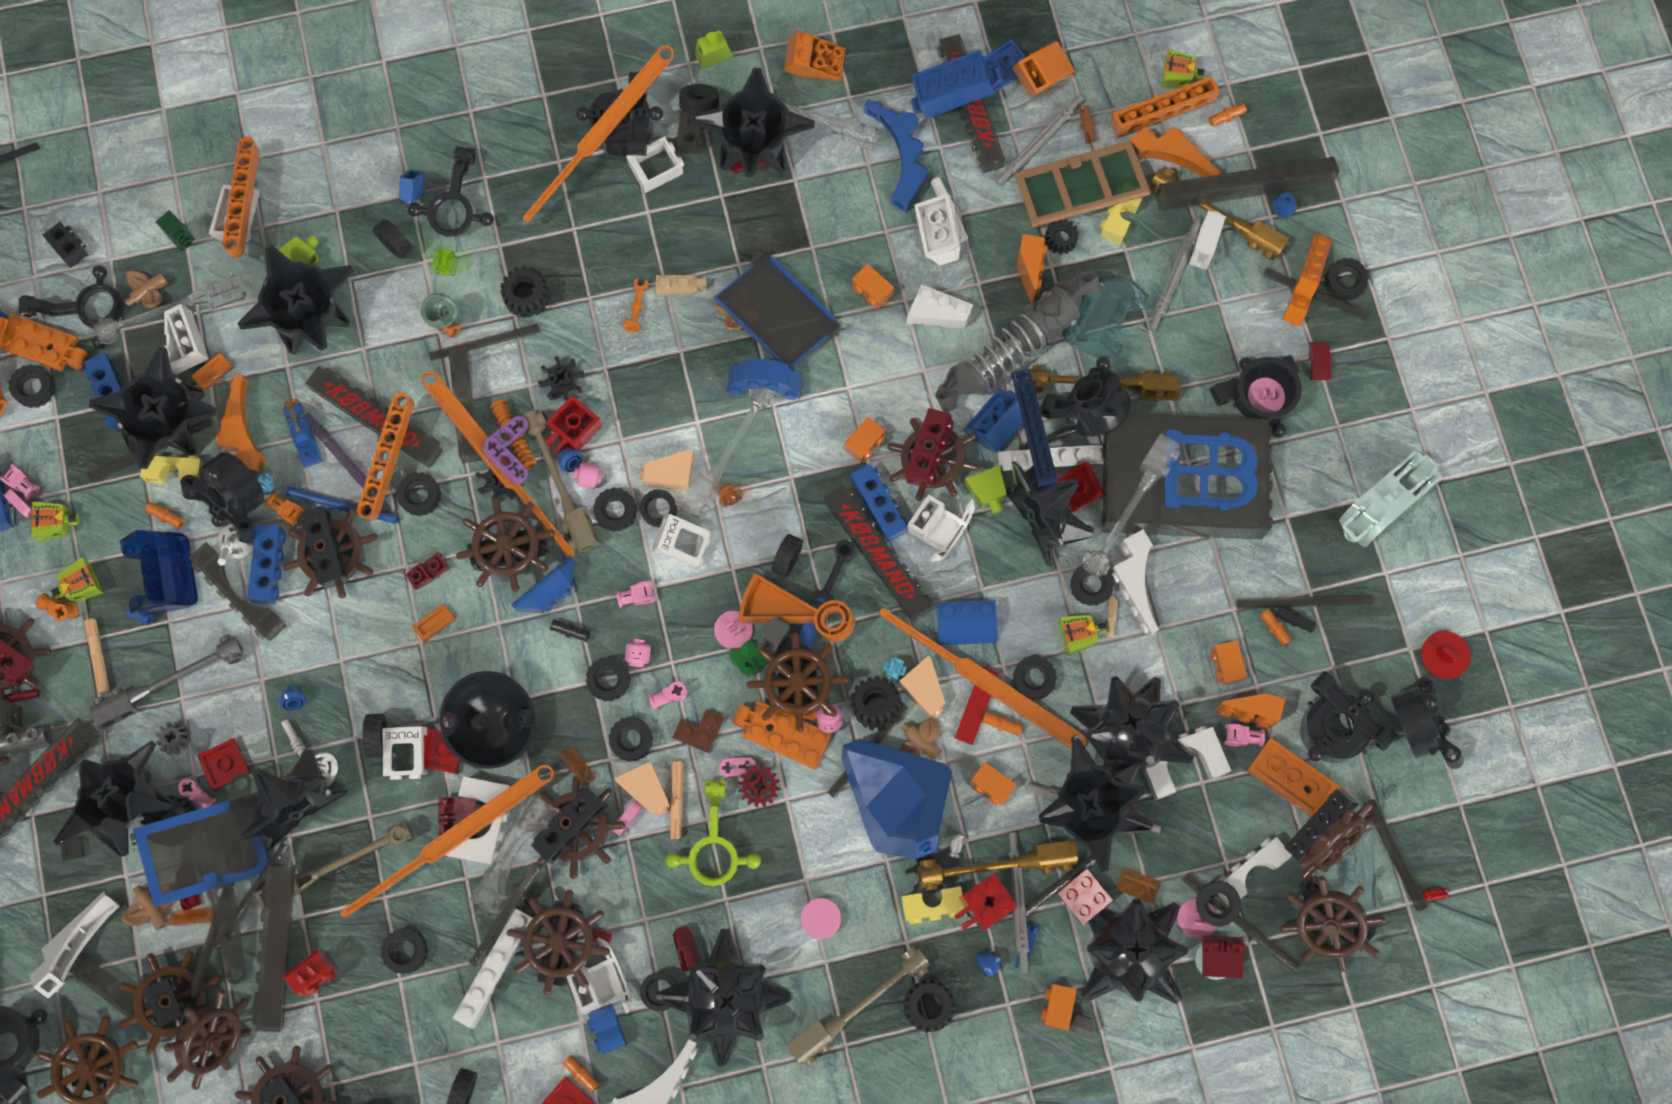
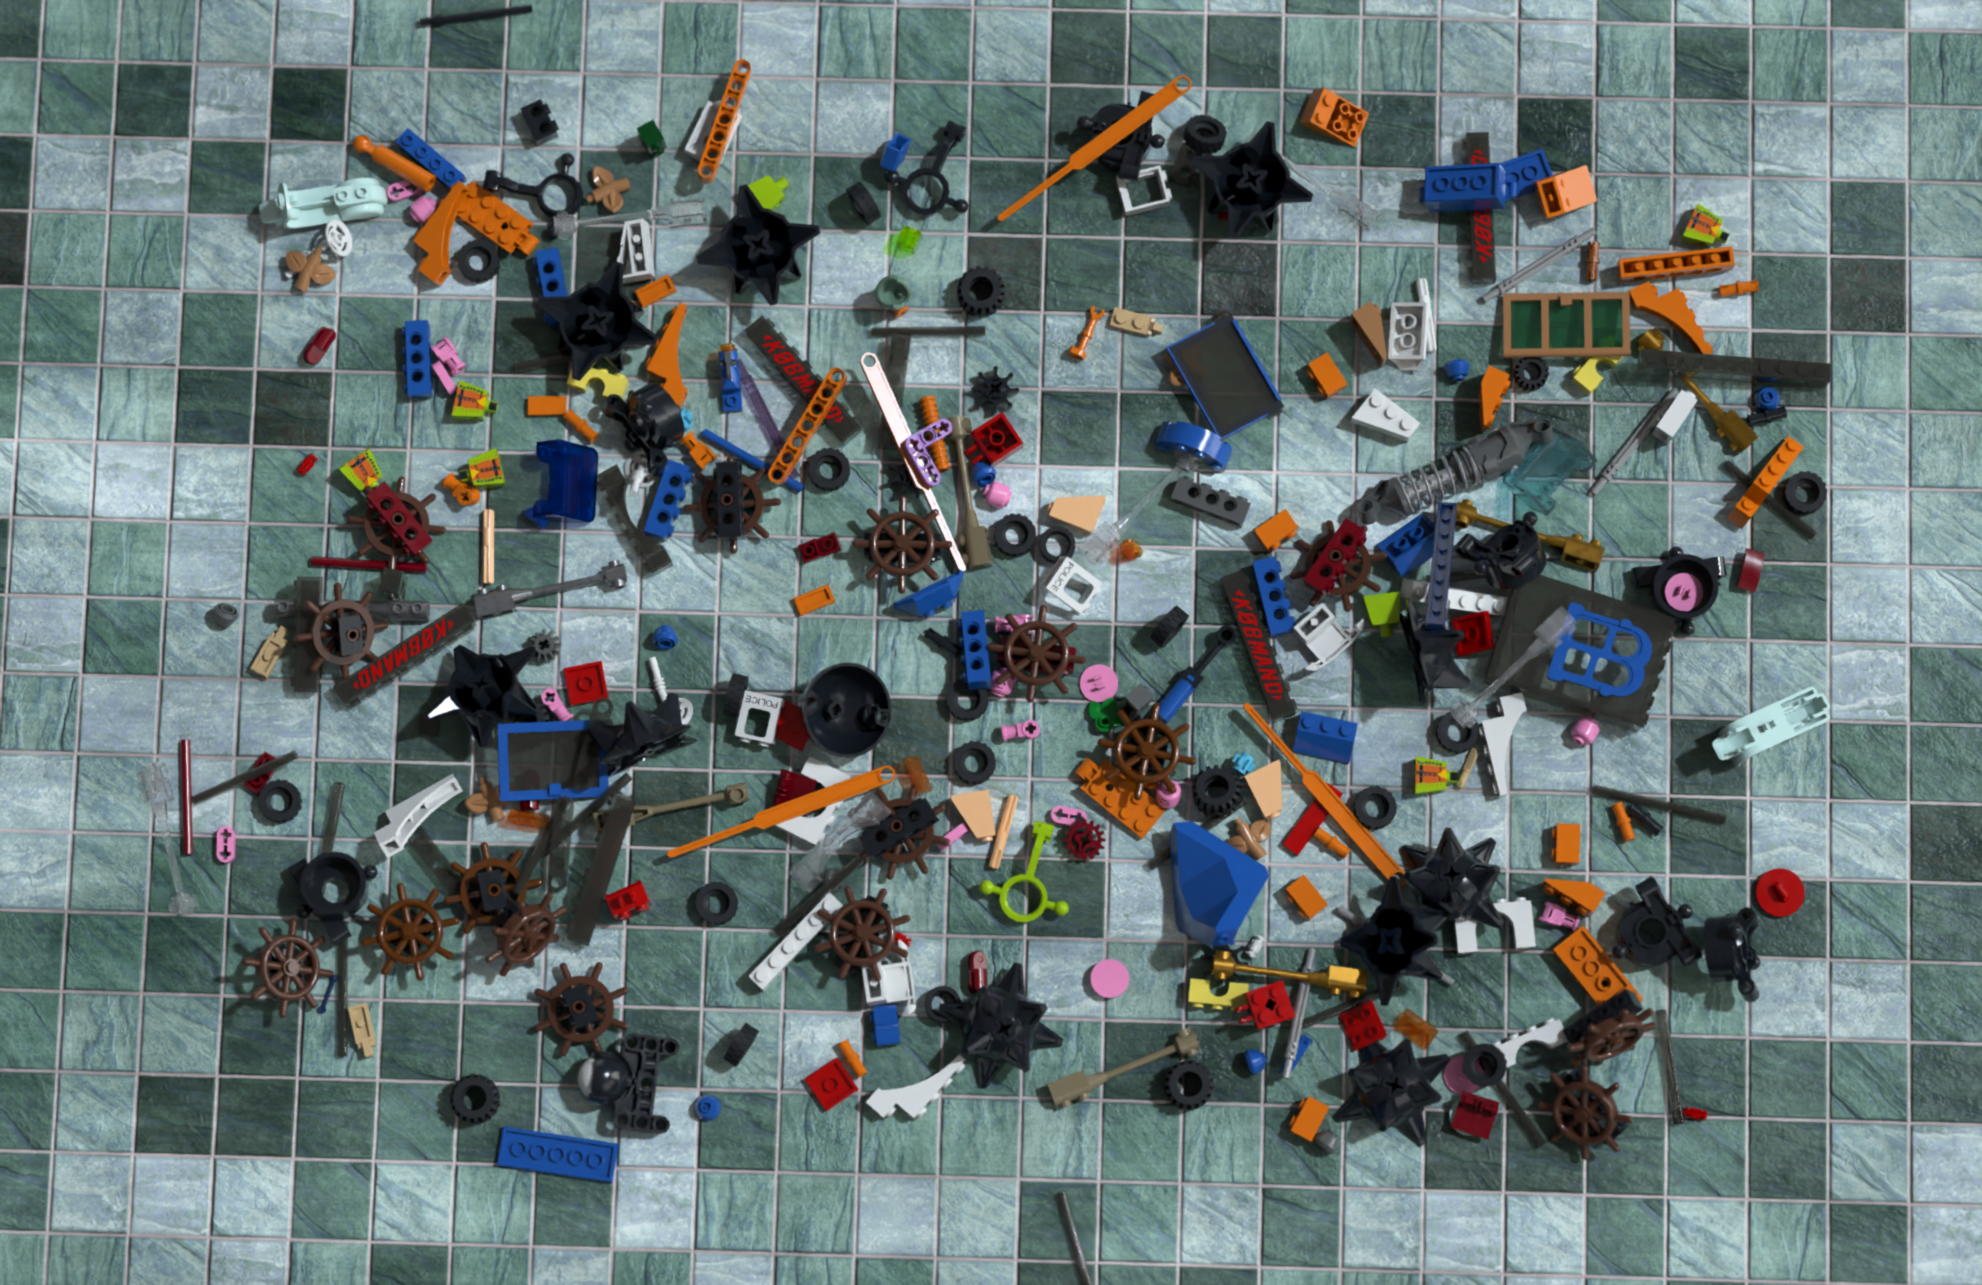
camera: 20 degrees right, 5 degrees up
(127, 505) = (547, 405): none -> orange tile
(597, 601) = (975, 678): none -> blue brick
(664, 616) = (1036, 654): none -> reddish brown brick
(701, 736) = (1041, 778): copper plate -> none
(712, 50) = (1232, 83): lime torso -> none
(765, 600) = (1138, 665): orange piece -> none
(786, 435) = (1216, 510): none -> dark grey brick
(900, 232) = (1369, 327): none -> medium nougat slope
(910, 149) = (1404, 242): blue arch -> none
(992, 249) = (1457, 369): none -> blue cone
(1213, 550) = (1585, 731): none -> bright pink head
(1290, 219) = (1766, 416): none -> black pin

